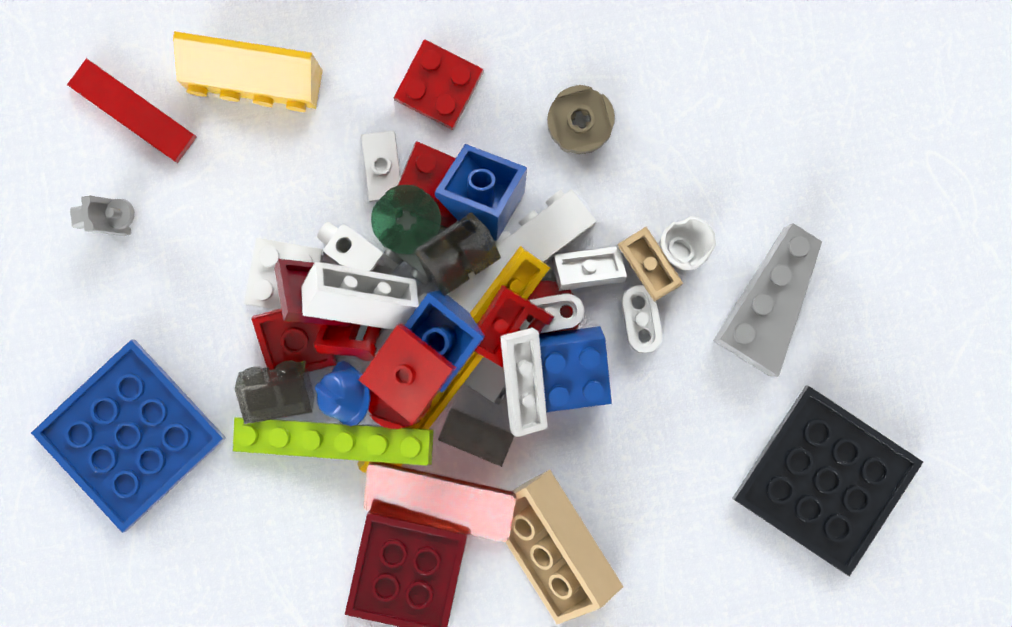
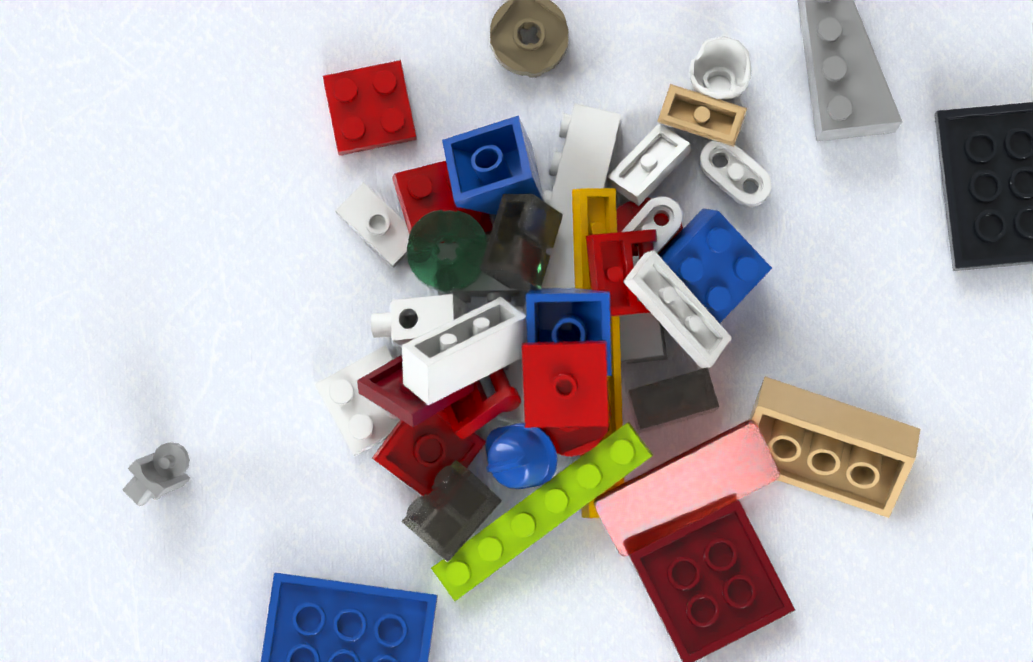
camera: 40 degrees left, 5 degrees down
(131, 110) = (97, 360): red tile -> none
(247, 71) = (183, 234): slope -> none

